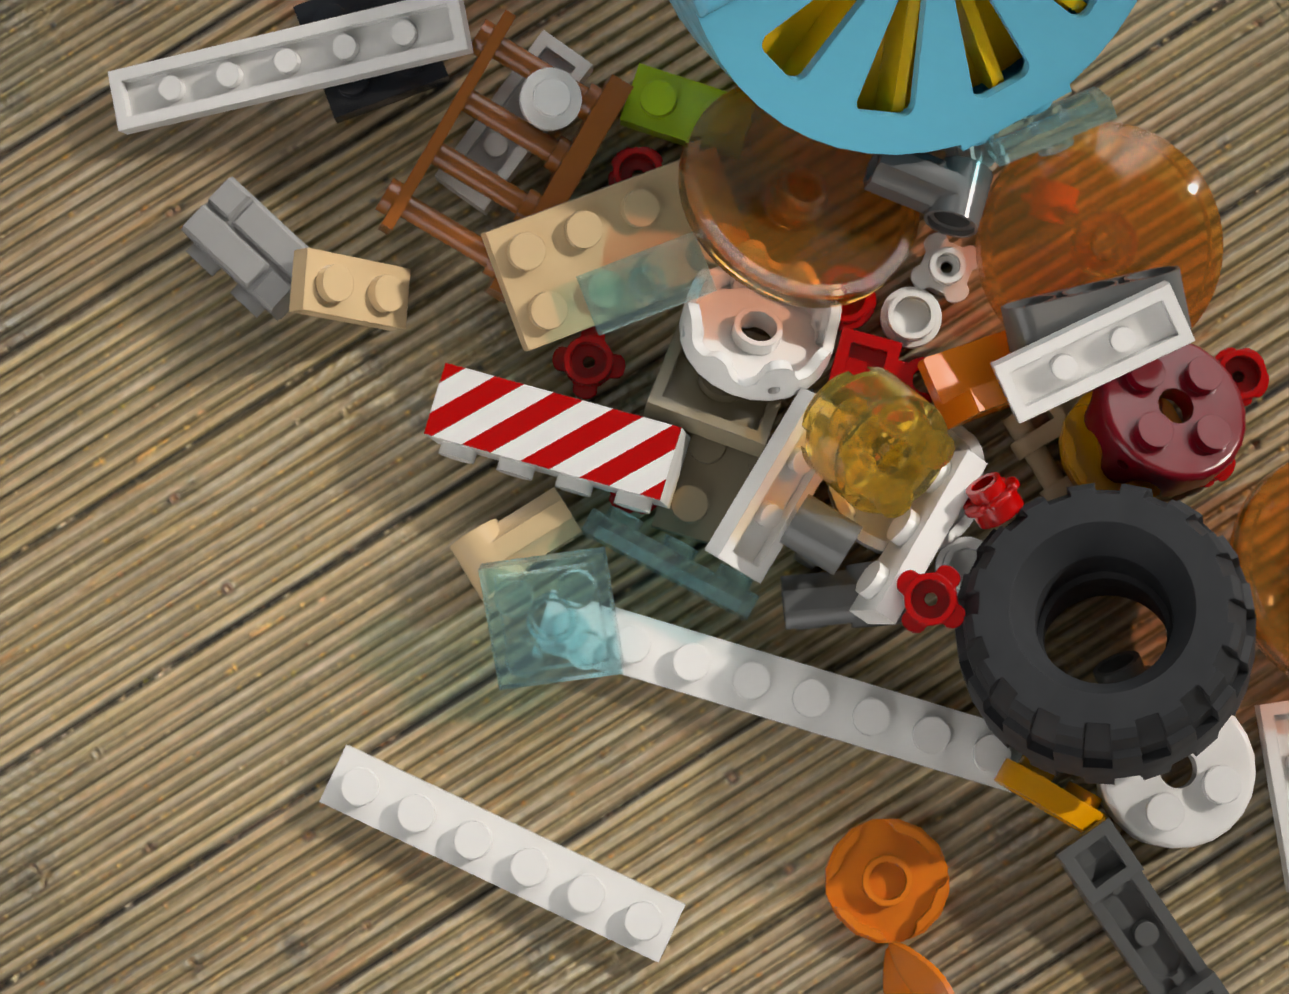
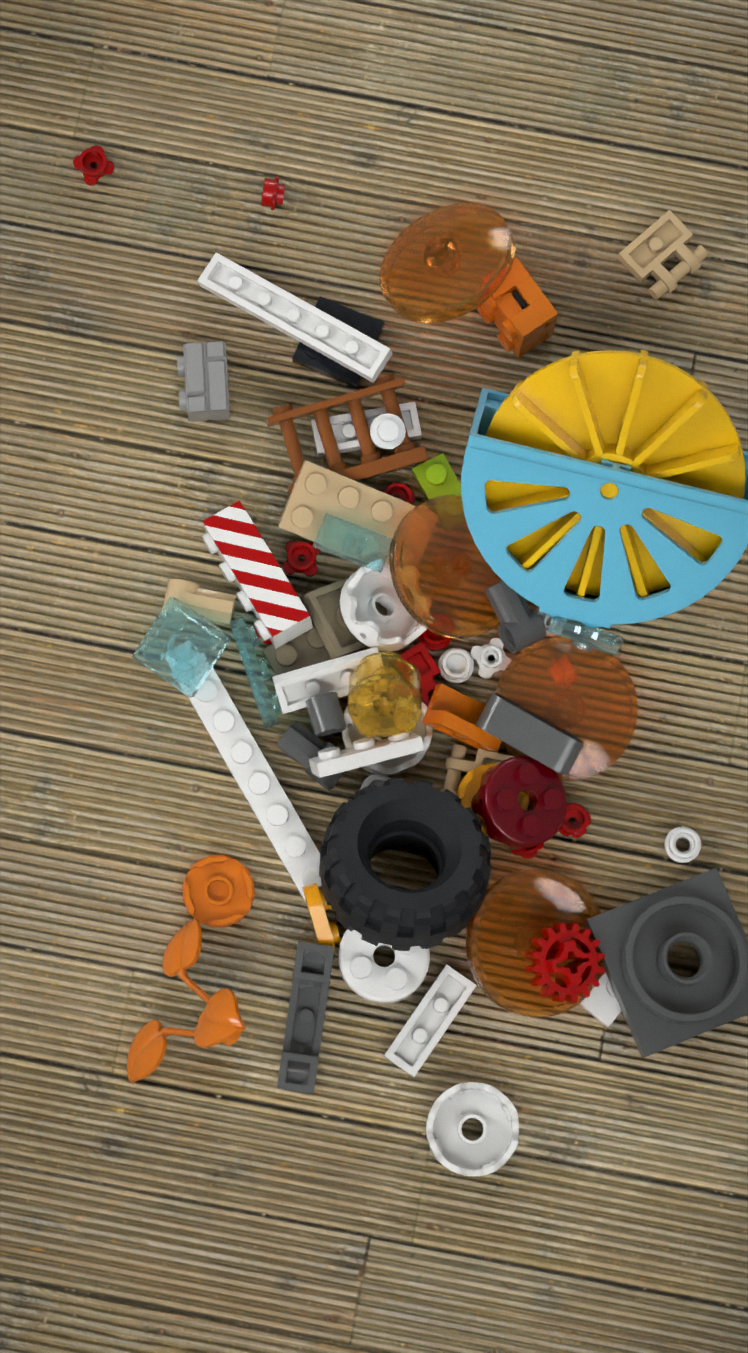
camera: 30 degrees right, 5 degrees down
(349, 289) = (229, 434): tan plate -> none
(502, 853) = (69, 728): white plate -> none
(943, 585) = (343, 770): red plate -> none
(993, 500) = (411, 766): red plate -> none
(1092, 351) = (510, 742): white plate -> none

